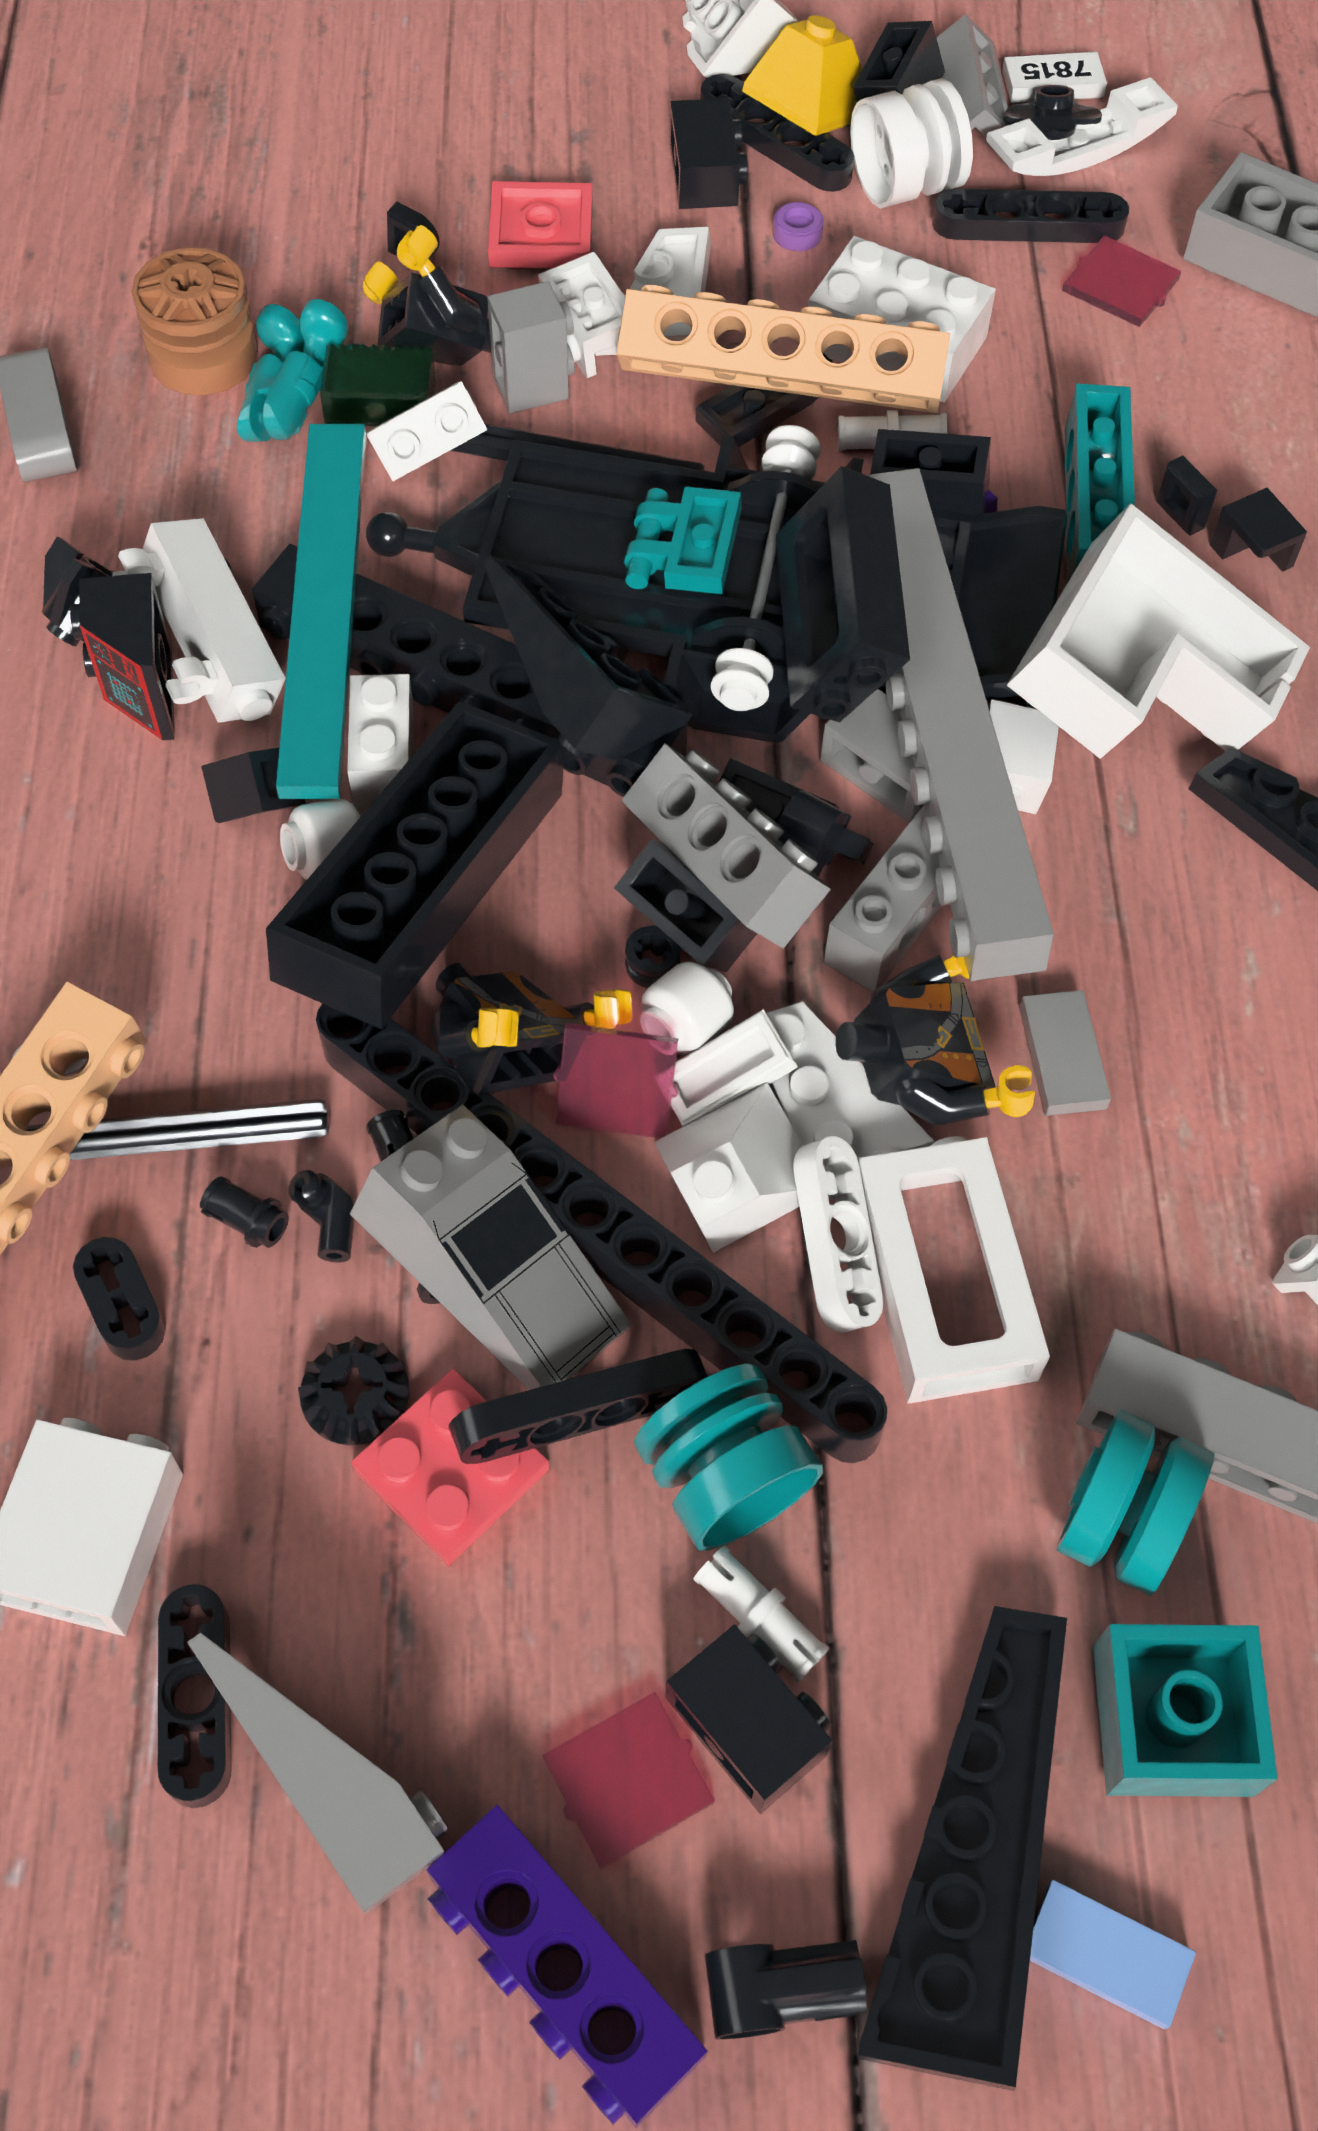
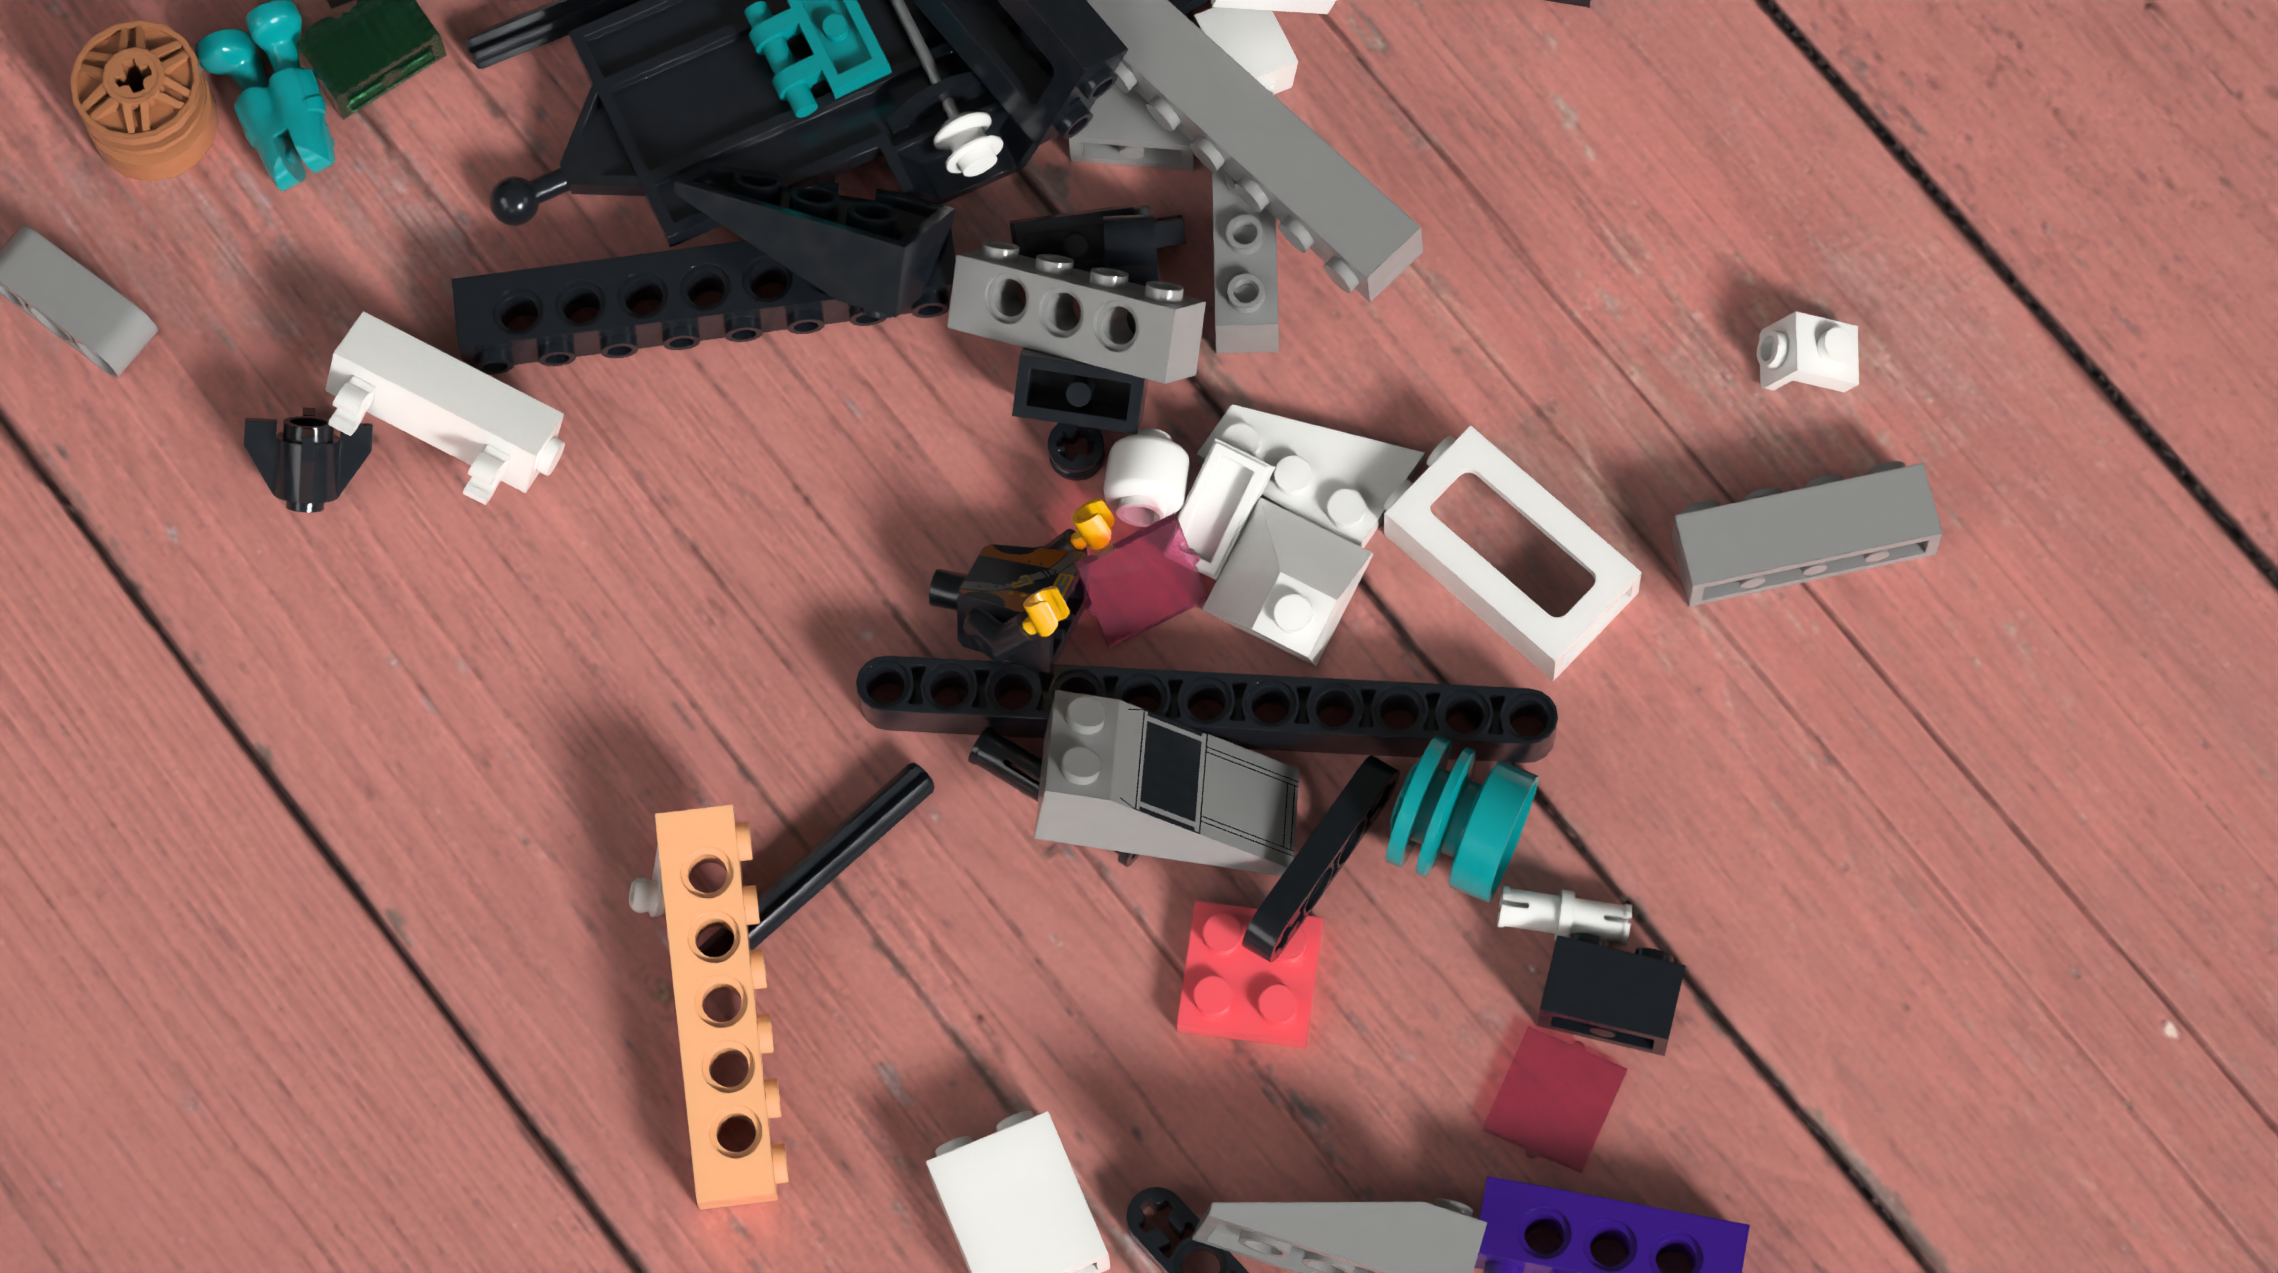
camera: 30 degrees left, 10 degrees up
(105, 1303) = (895, 1020): black beam -> none
(127, 647) = (405, 484): black slope -> none
(245, 785) = (611, 529): black panel -> none
(257, 1219) = (929, 897): black pin -> none
(314, 833) = (722, 537): white head -> none
(322, 614) = (544, 322): teal tile -> none
(328, 1207) = (994, 846): black arm -> none
(376, 1409) = (1125, 1000): black gear -> none
(379, 733) = (694, 414): white brick -> none
(415, 864) = (837, 504): black brick -> none
(426, 430) = (458, 83): white hinge -> none
(765, 1988) = (1755, 1164): black piece -> none
(829, 1282) = (1366, 543): white beam -> none
(927, 1048) = (1368, 380): torso -> none
(965, 1928) = (1855, 1011): black wing -> none
(1064, 1053) = (1471, 300): light grey tile -> none
(1110, 1954) = (1967, 974): light blue tile -> none
(1144, 1505) = (1778, 640): teal wheel -> none
(1183, 1710) = (1910, 769): teal brick -> none

